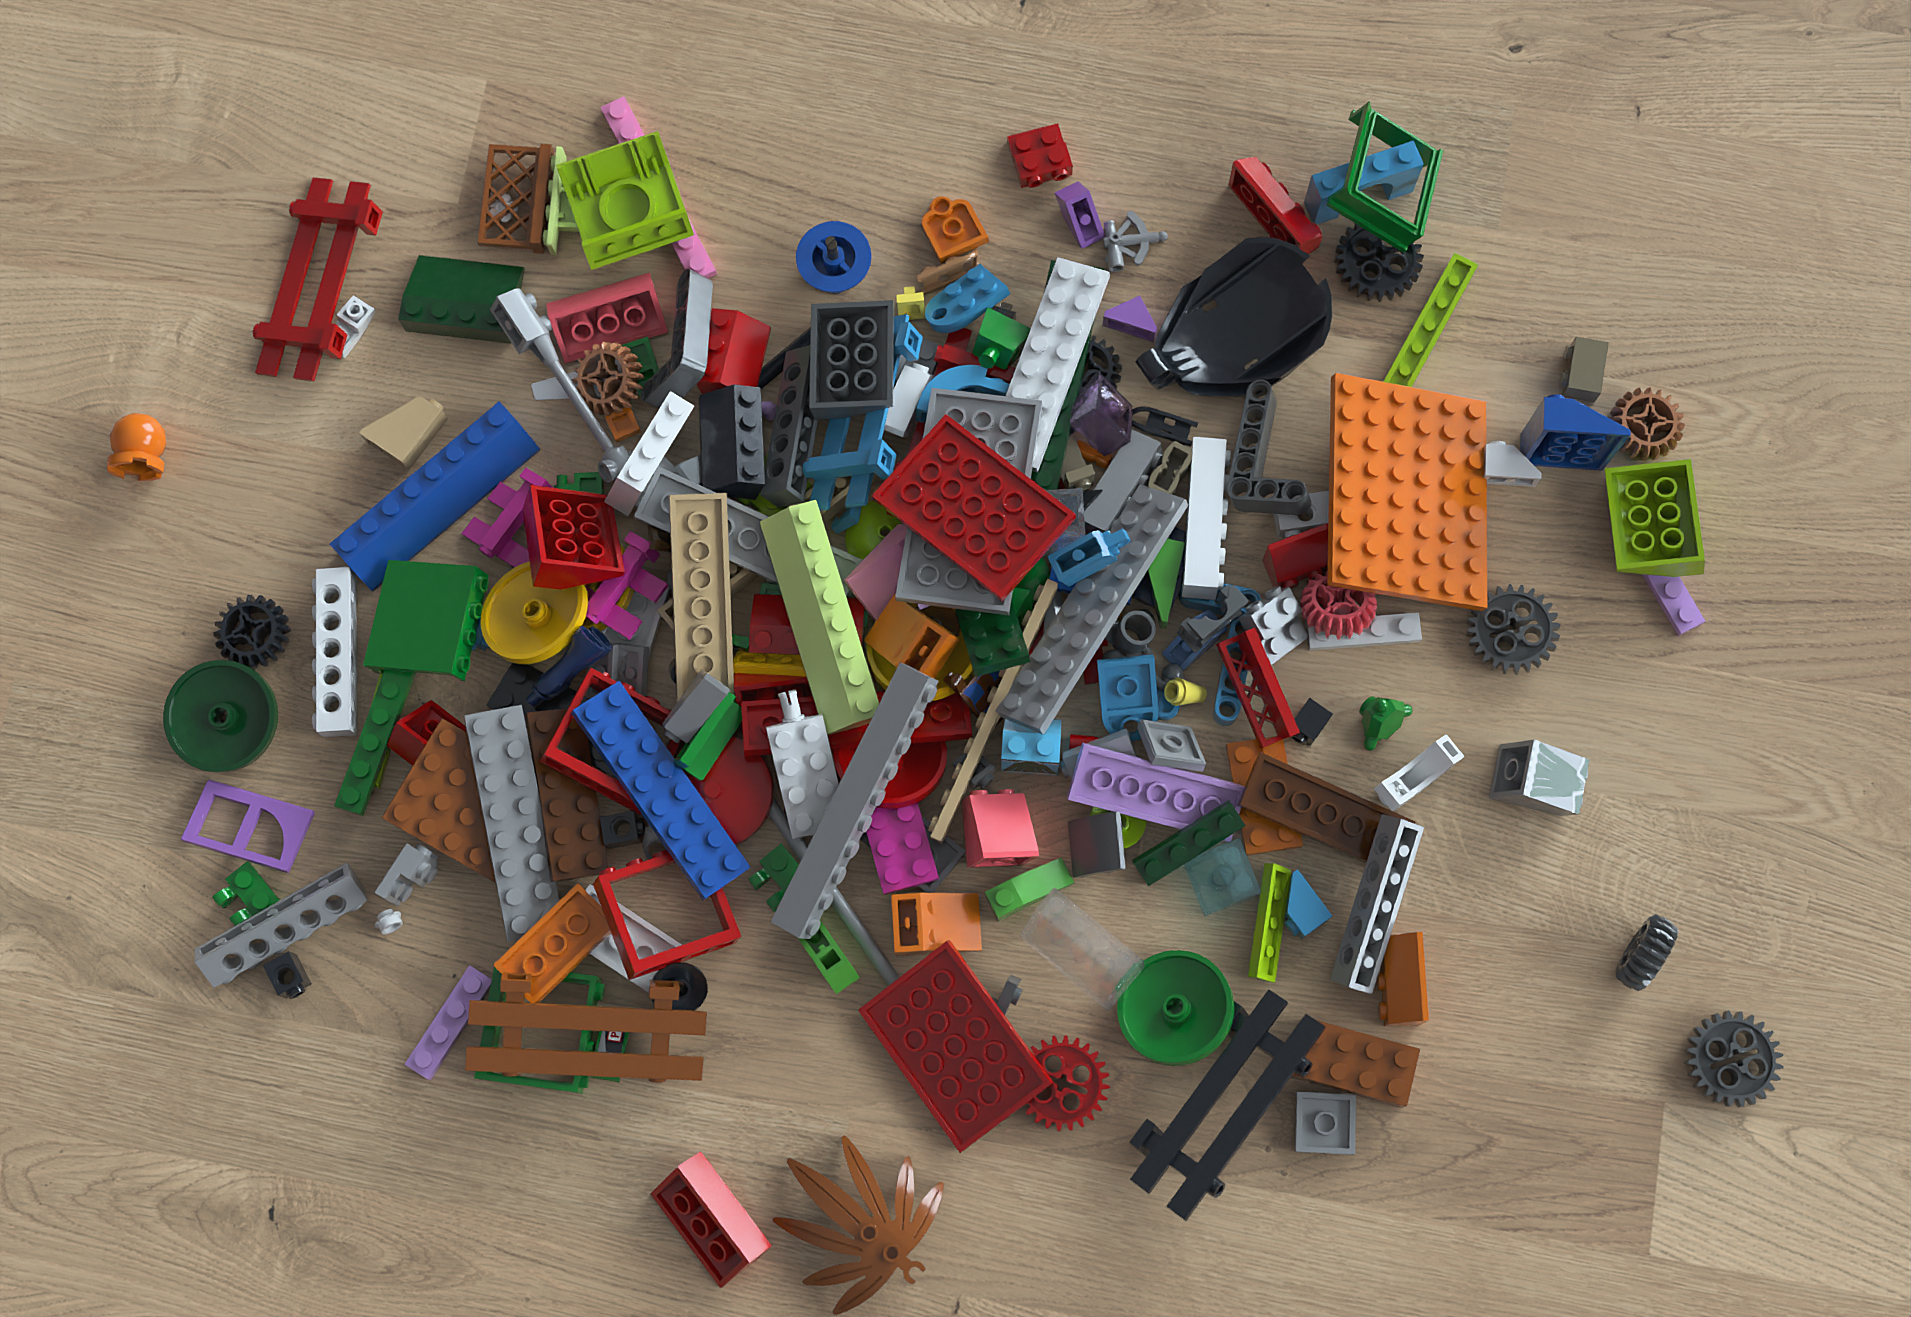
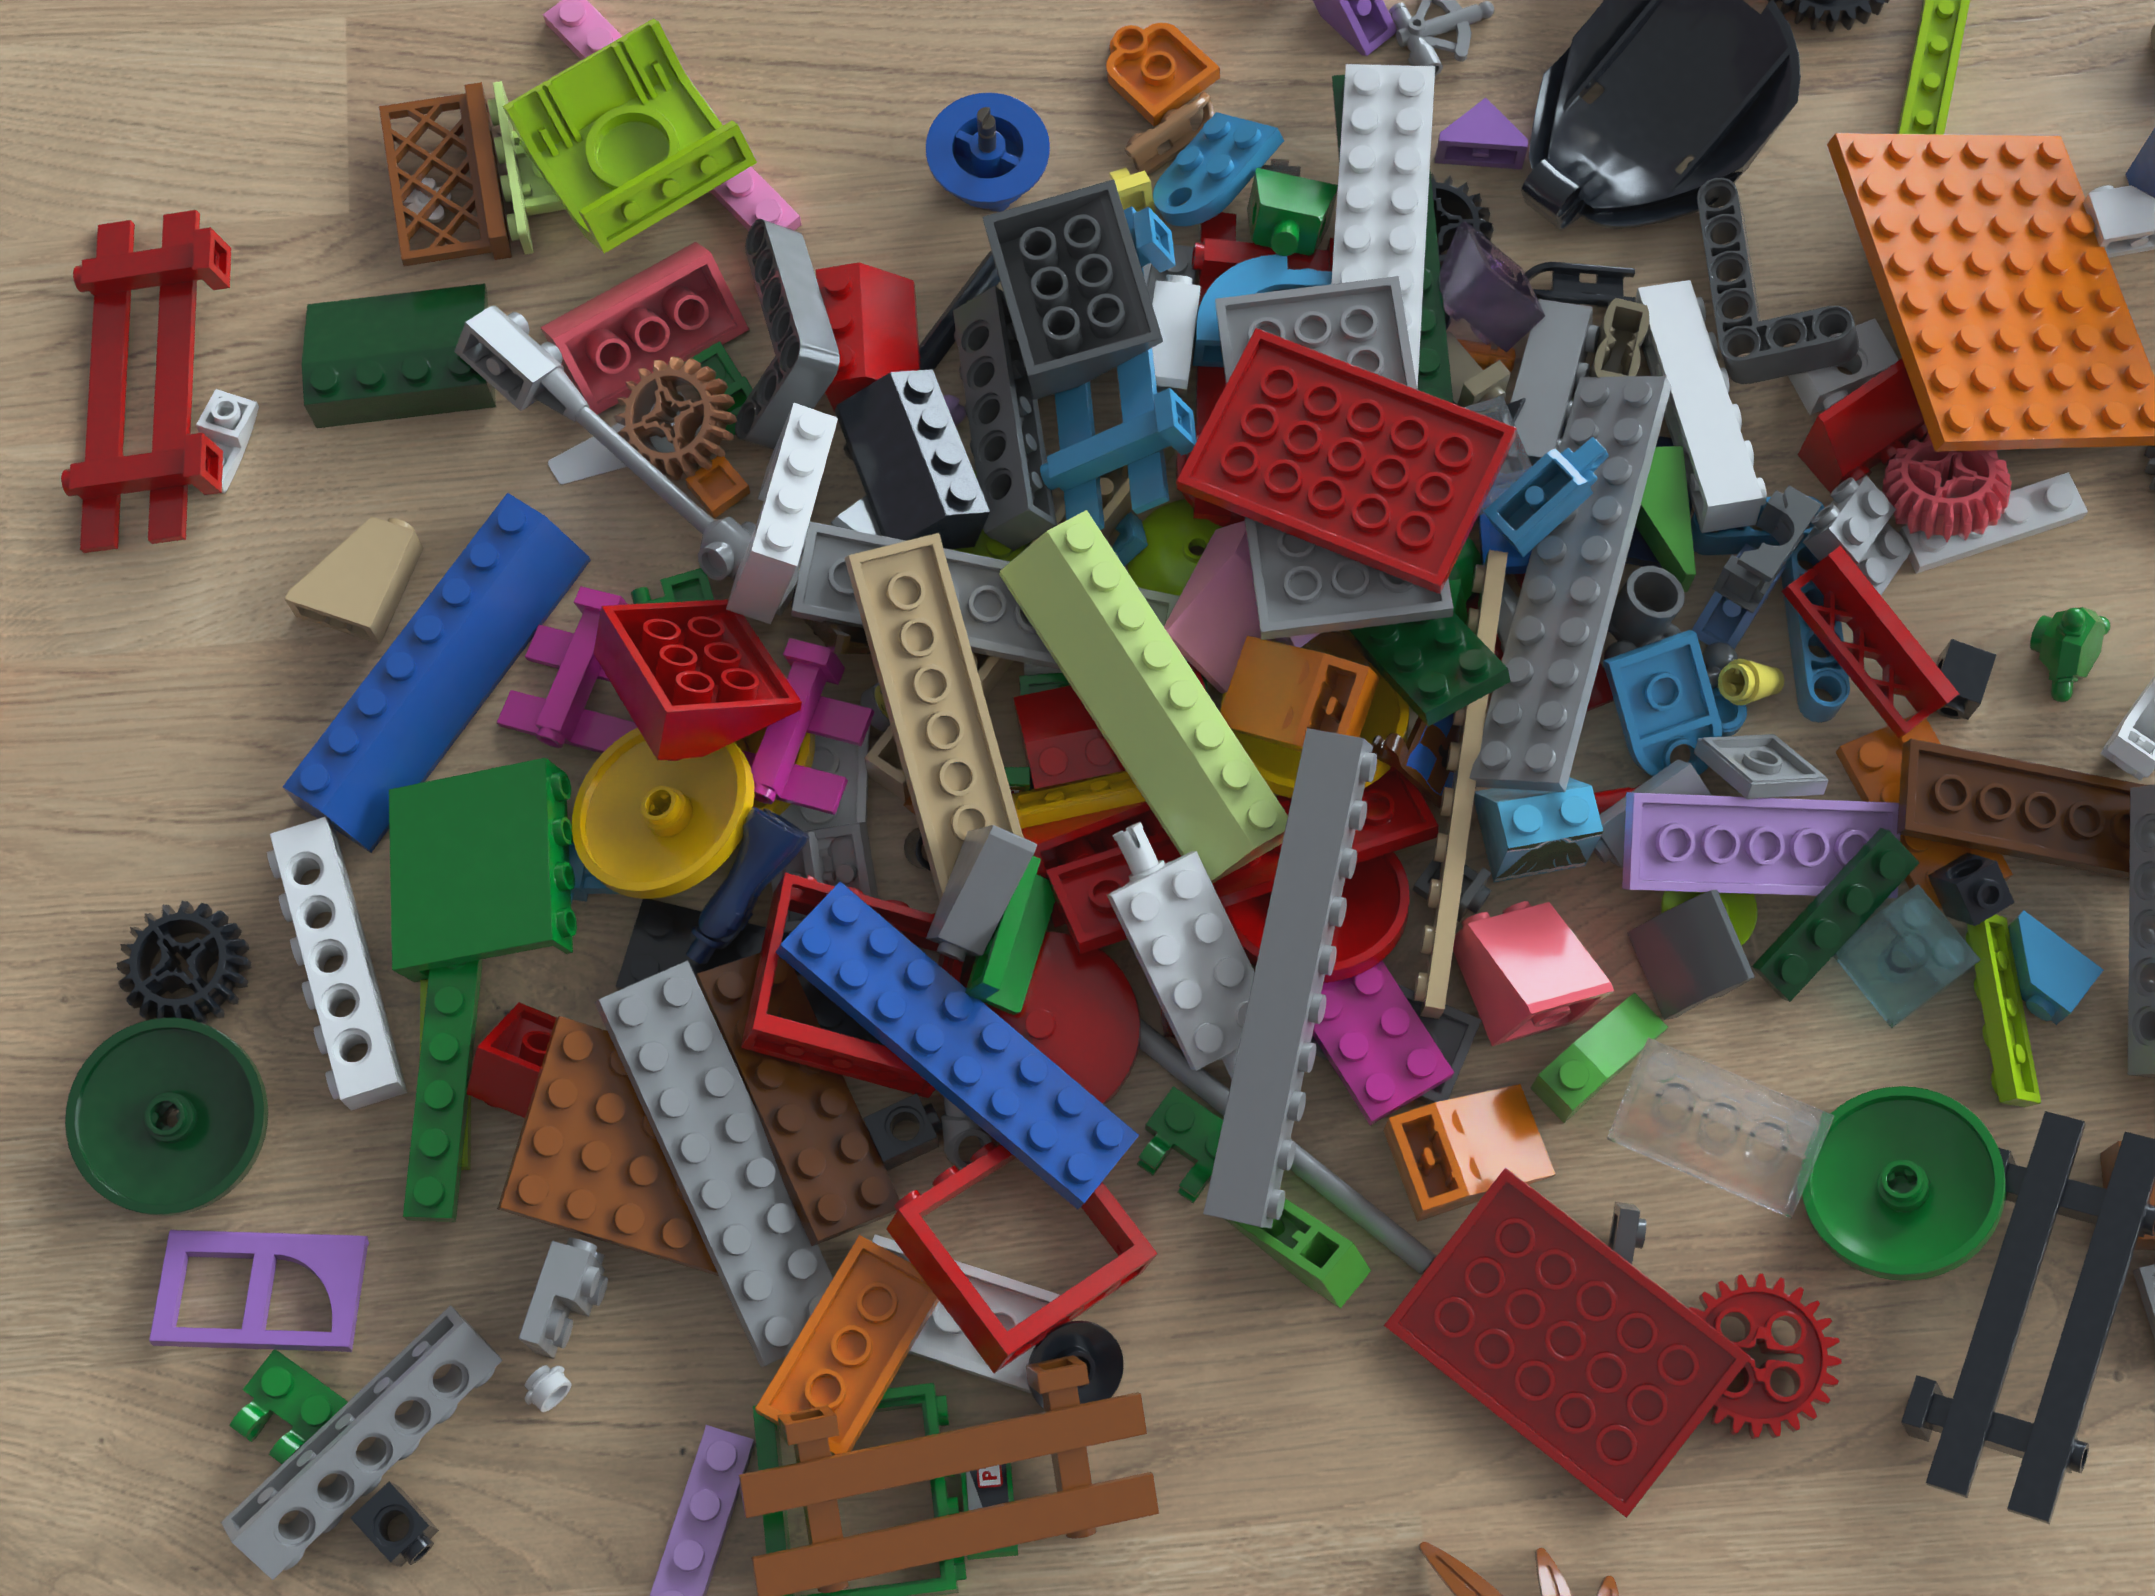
camera: 20 degrees left, 5 degrees down
(1270, 849) = (1971, 889): none -> black brick

